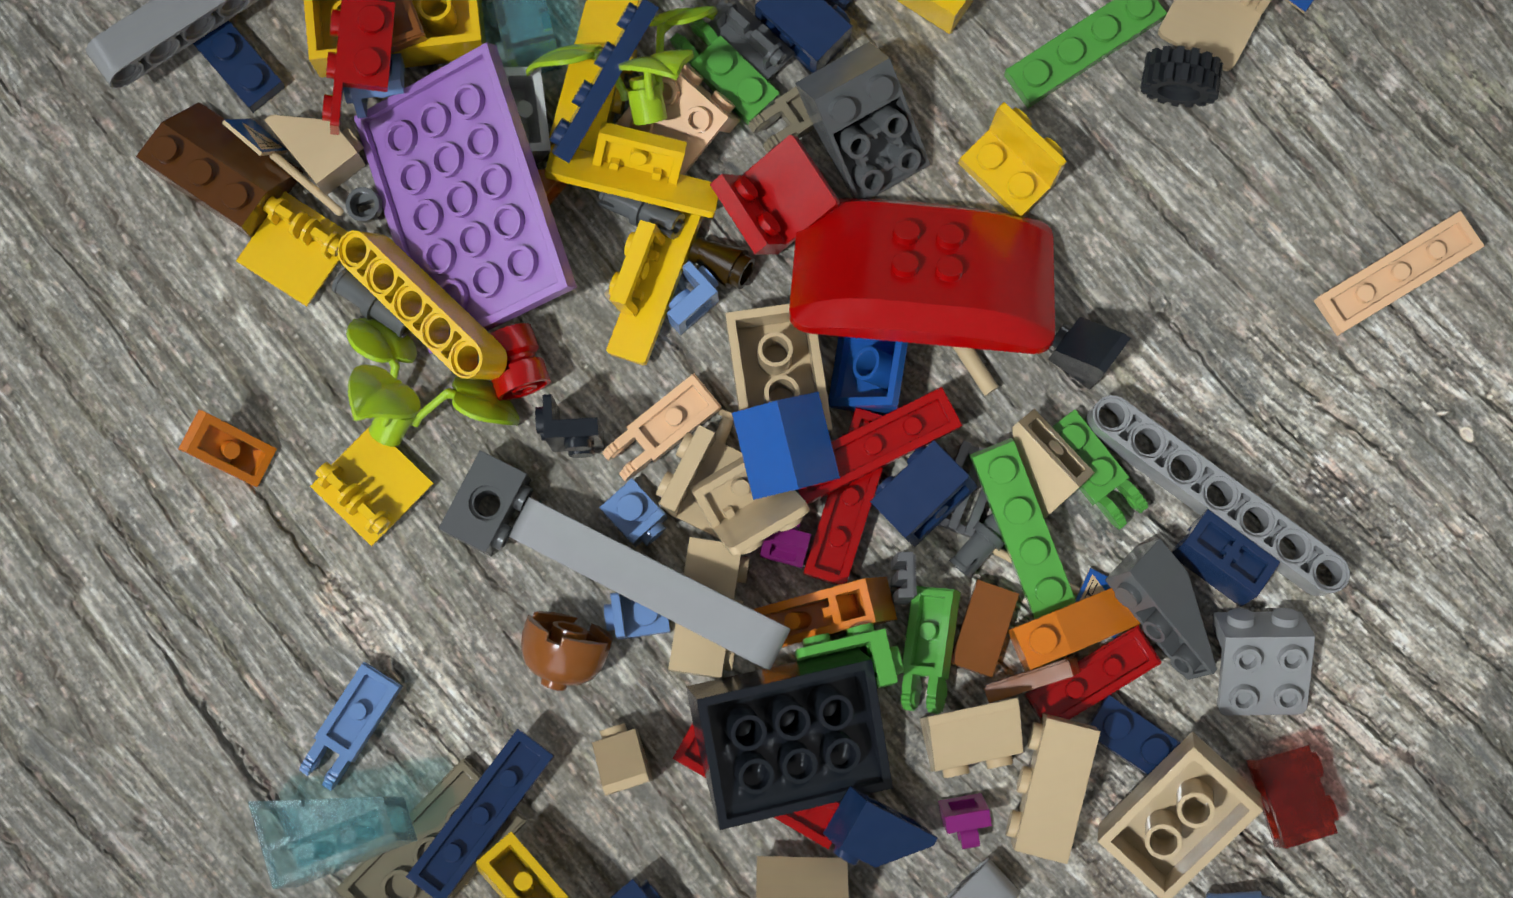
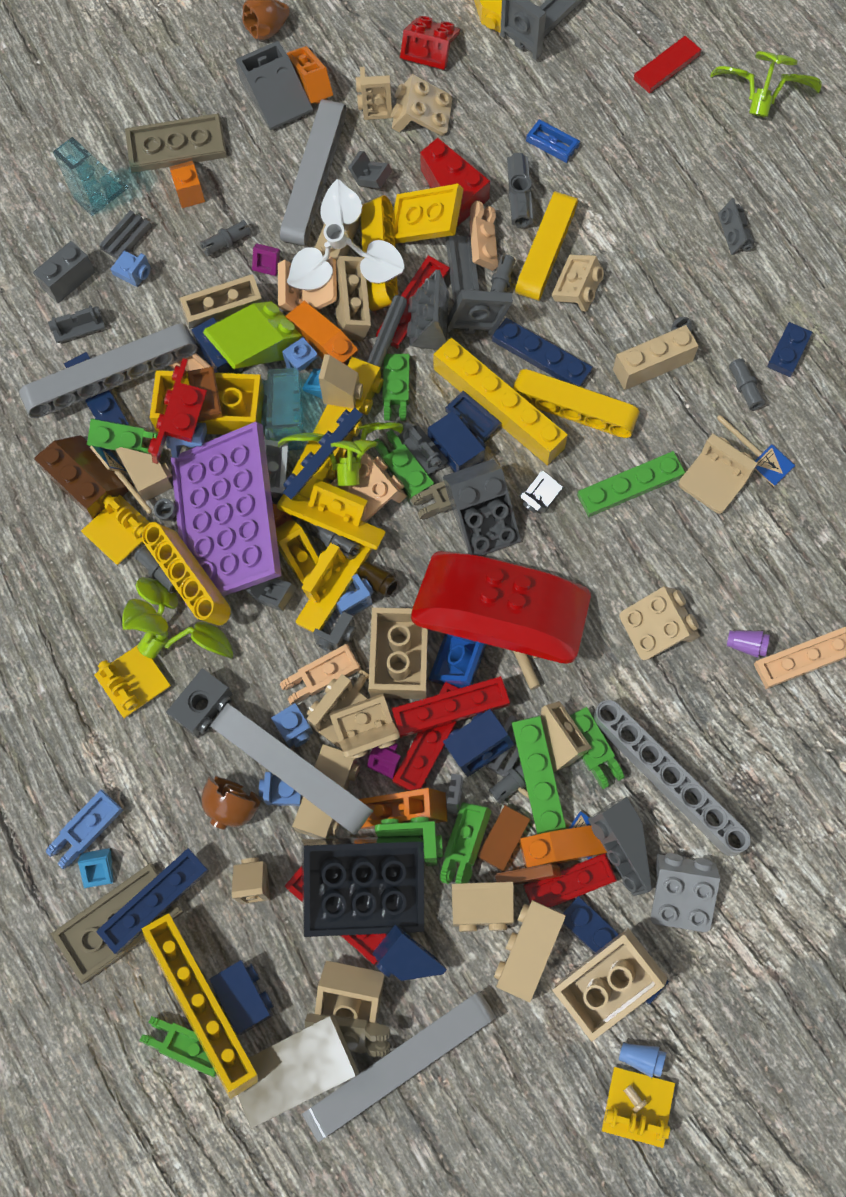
camera: 15 degrees right, 10 degrees down
(227, 448) = (47, 641): orange slope -> none
(266, 95) = (116, 435): none -> bright green hinge
(323, 836) = (49, 896): clear light blue wedge -> none
(381, 775) = (96, 868): none -> dark azure slope
(524, 370) = (240, 625): red wheel -> none
(566, 314) = (273, 593): none -> dark grey bracket
(576, 436) = (260, 667): black bracket -> none
(588, 237) = (296, 549): none -> yellow slope
(684, 355) = (342, 632): none -> dark grey bracket
(776, 197) = (418, 544): red bracket -> none
(785, 445) = (393, 694): blue slope -> none
(951, 82) = (541, 493): none -> bracket
(965, 816) = (468, 959): magenta tile -> none
(1014, 161) = (573, 546): yellow bracket -> none
(1087, 350) = (599, 670): black slope -> none
(1163, 261) = (659, 622): none -> tan bracket
(1181, 76) = (687, 510): black tyre -> none
(1225, 558) = (669, 818): dark blue hinge -> none
(1293, 796) = (691, 985): clear red brick -> none
(1303, 268) = (749, 642): none -> medium lavender cone

